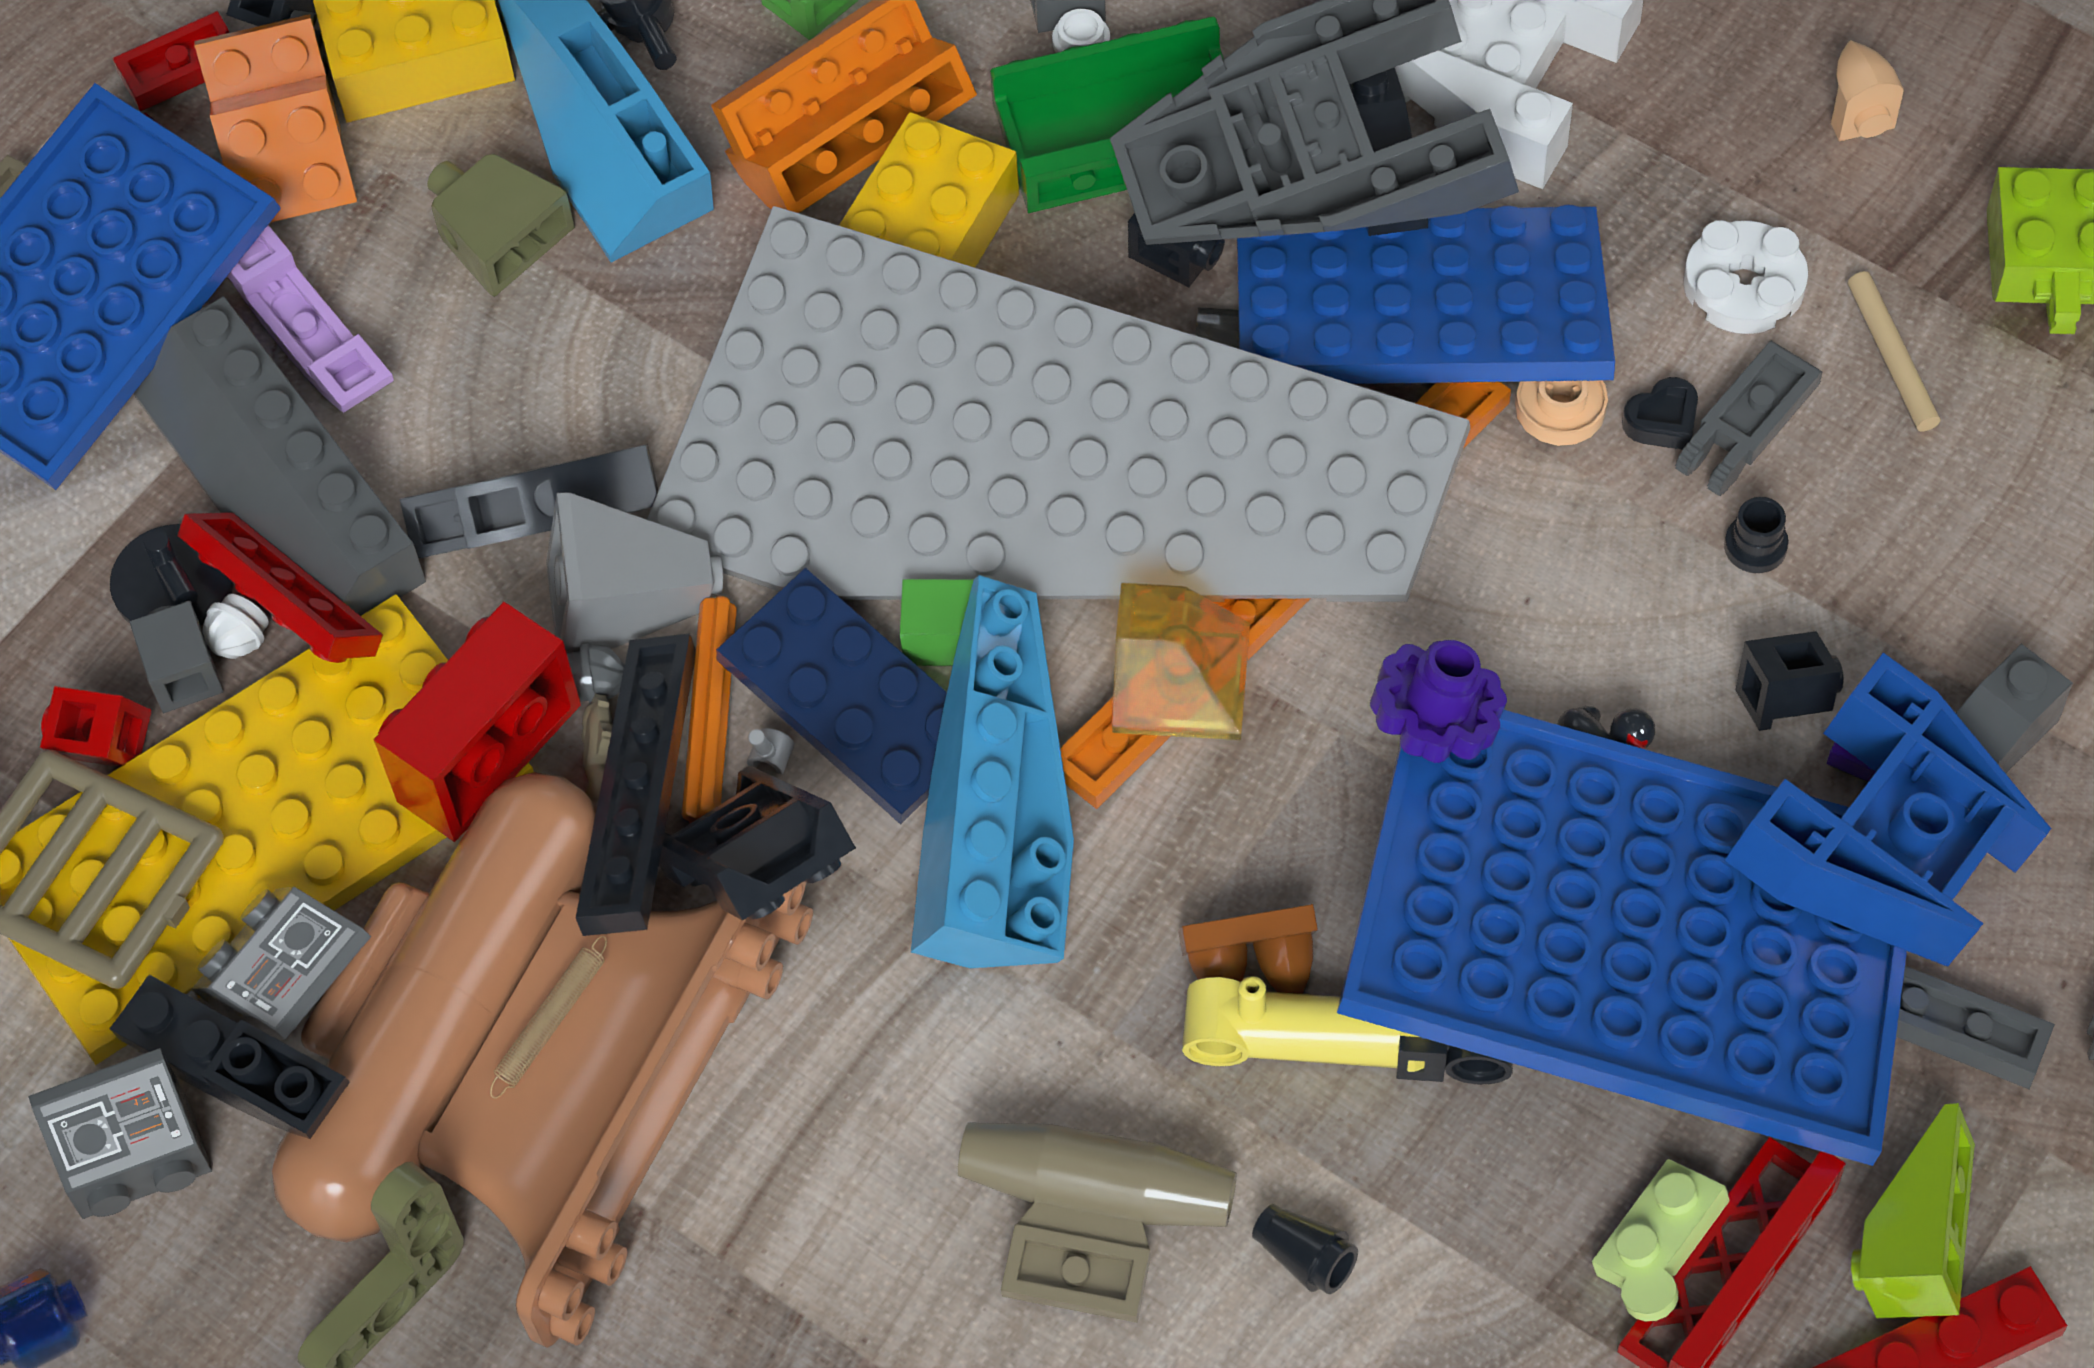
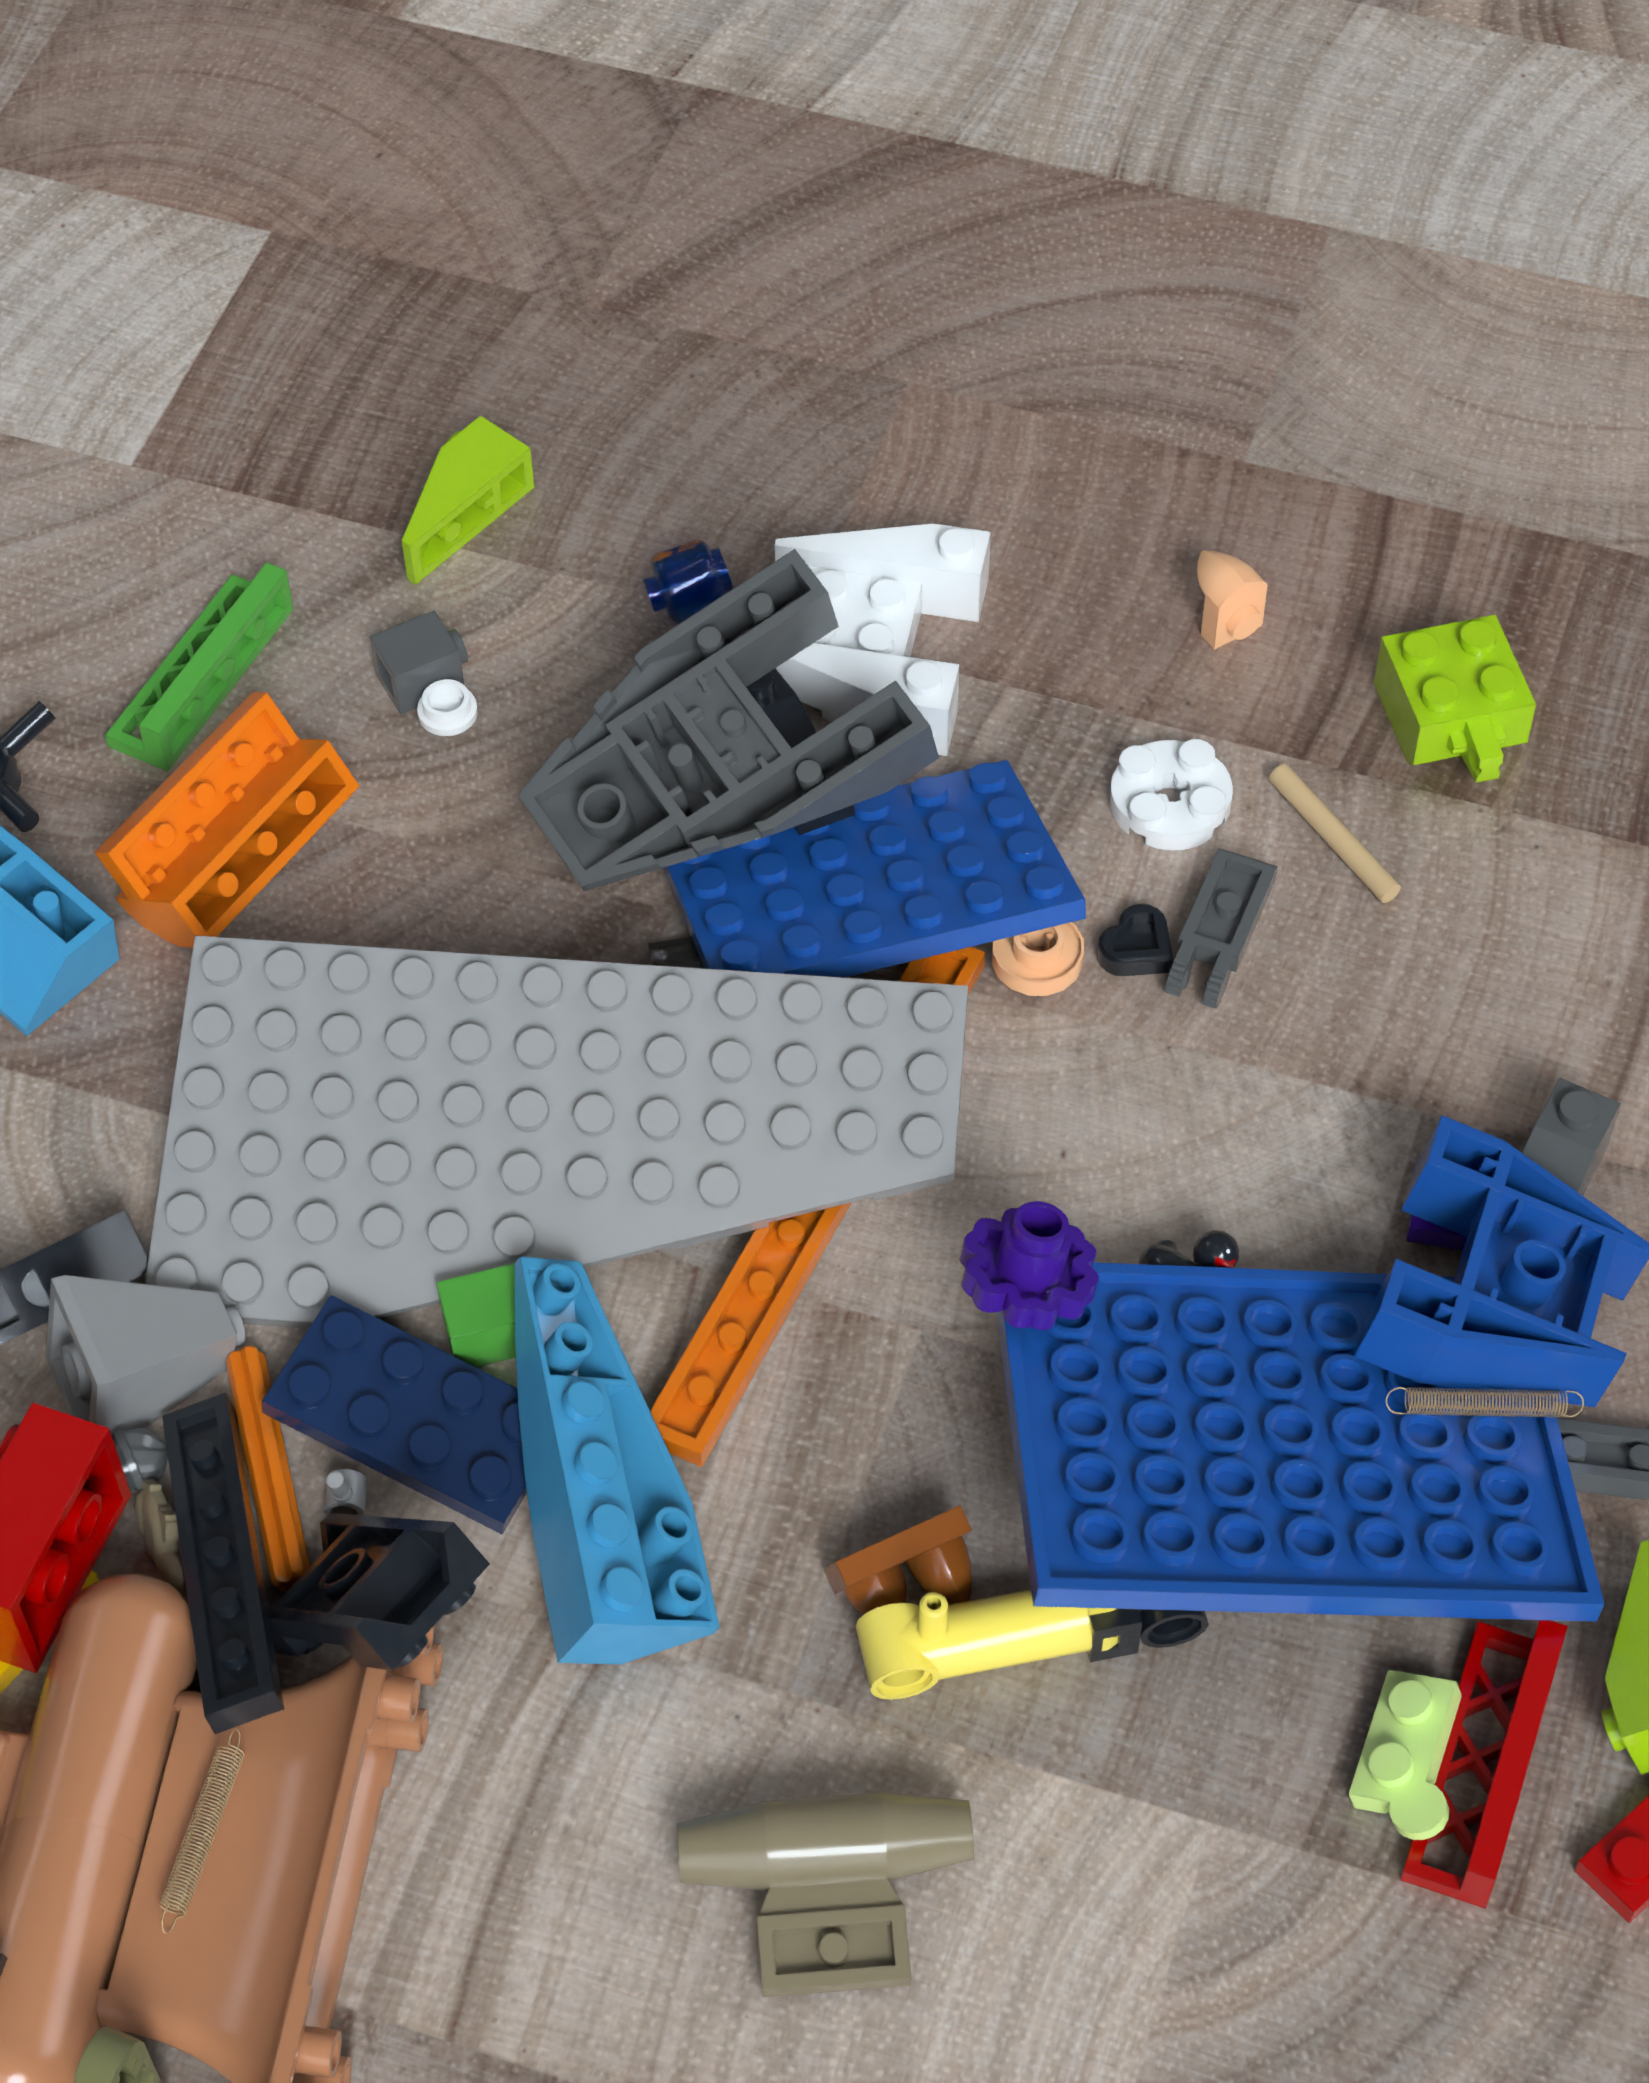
camera: 20 degrees left, 5 degrees down
(937, 191) = (351, 885): yellow piece -> none
(1072, 102) = (462, 778): green panel -> none
(1174, 260) = (609, 903): black bracket -> none
(1178, 664) = (746, 1299): clear yellow slope -> none
(1307, 1248) = (1060, 1859): black cone -> none
(1755, 550) = (1267, 1051): black piece -> none
(1787, 677) = (1344, 1166): black brick -> none
(1831, 938) = (1479, 1406): none -> tan piece

